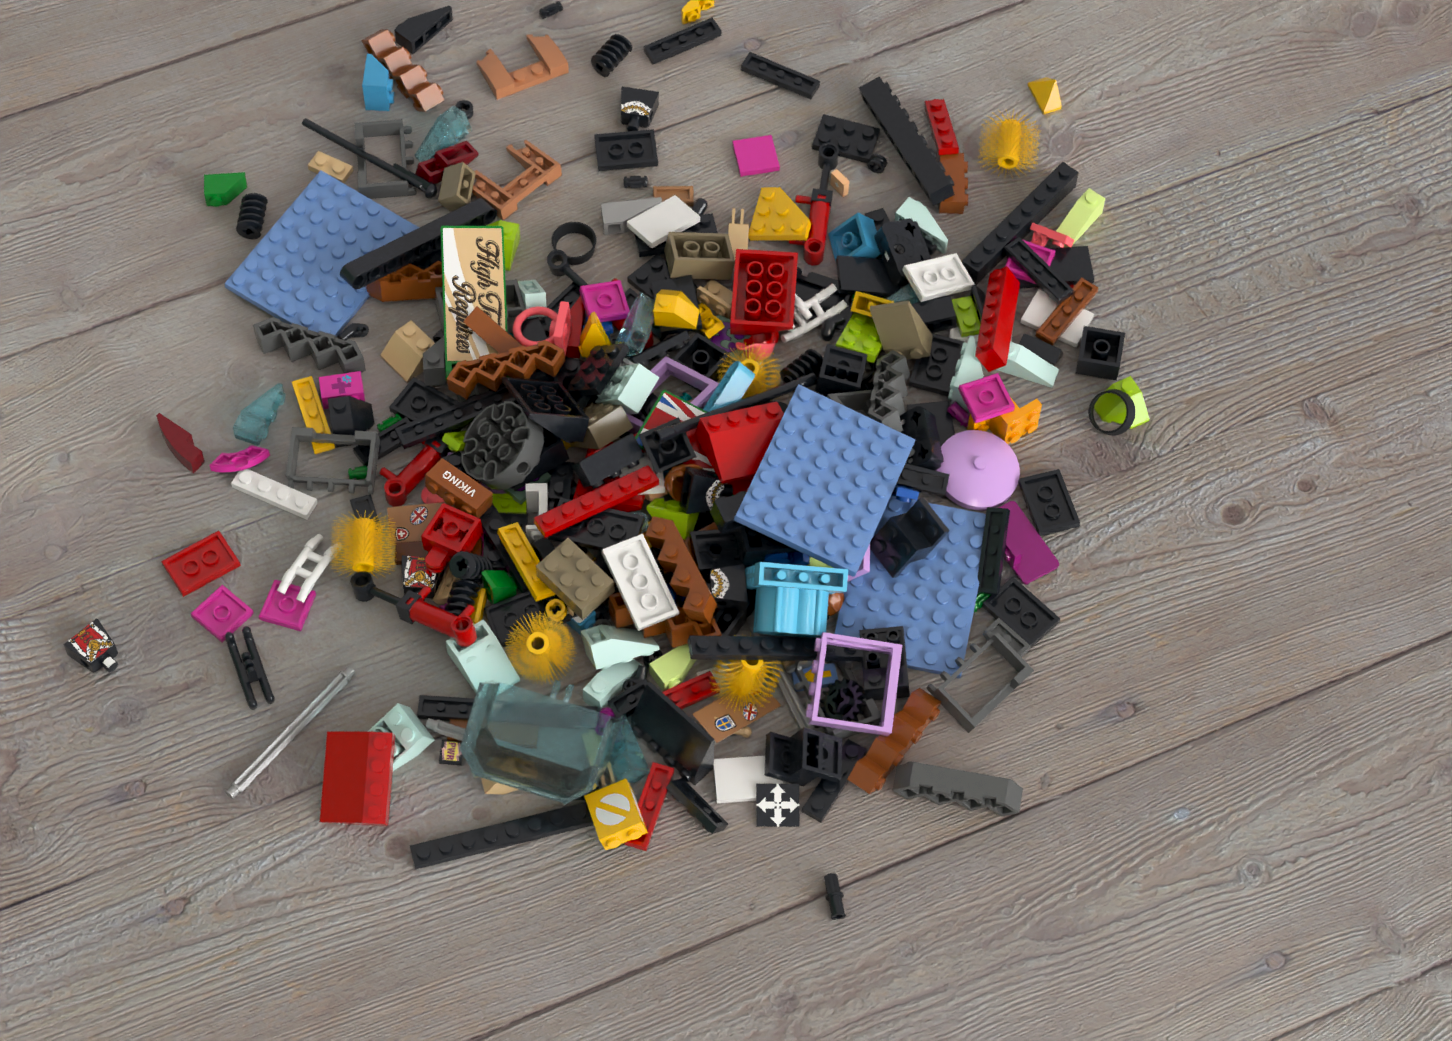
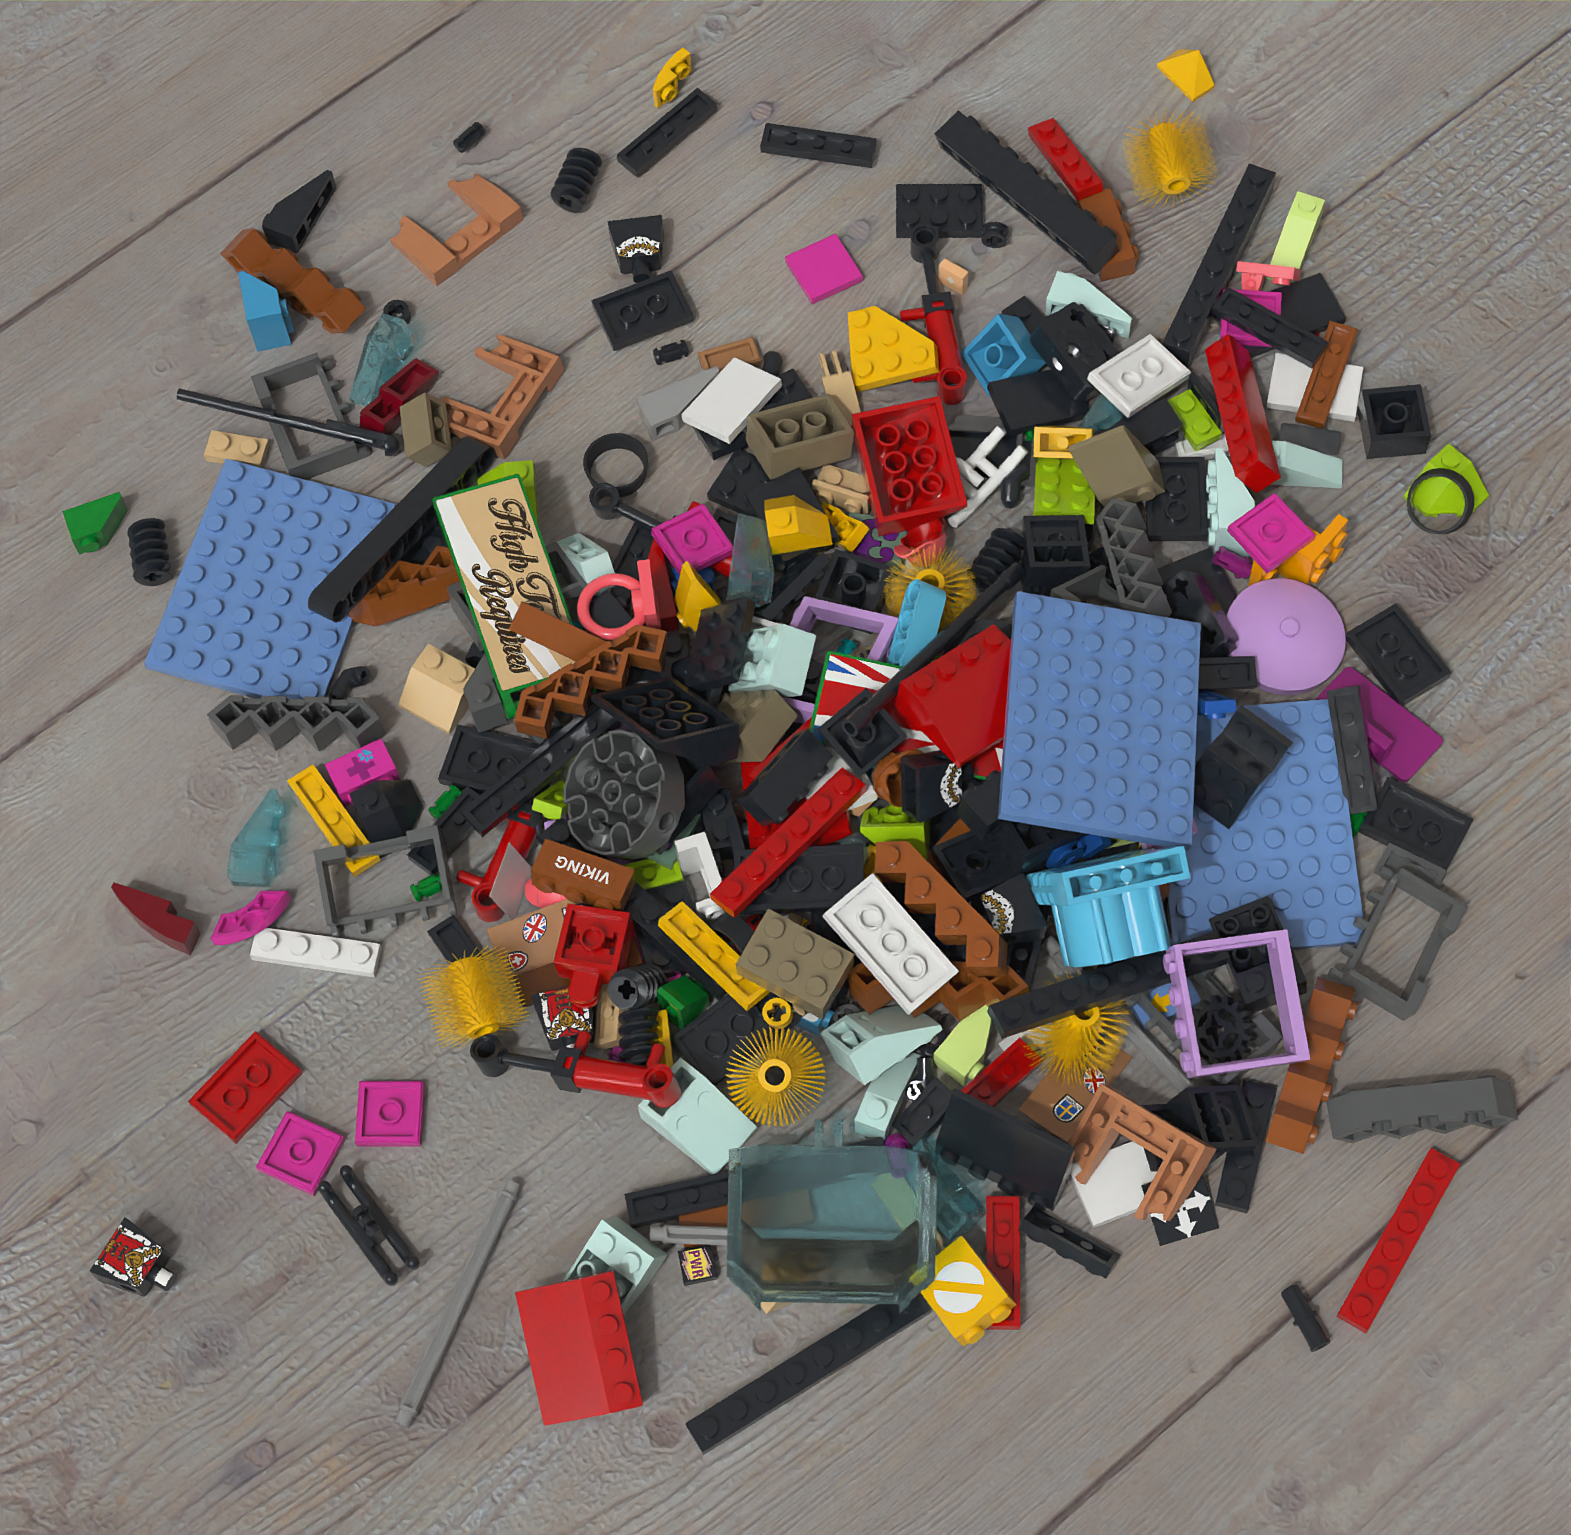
camera: 10 degrees left, 5 degrees up
(311, 577) = (410, 1063): white piece -> none
(412, 482) = (511, 882): none -> white sticker
(785, 765) = (1182, 1153): none -> nougat wedge
(914, 866) = (1398, 1240): none -> red plate

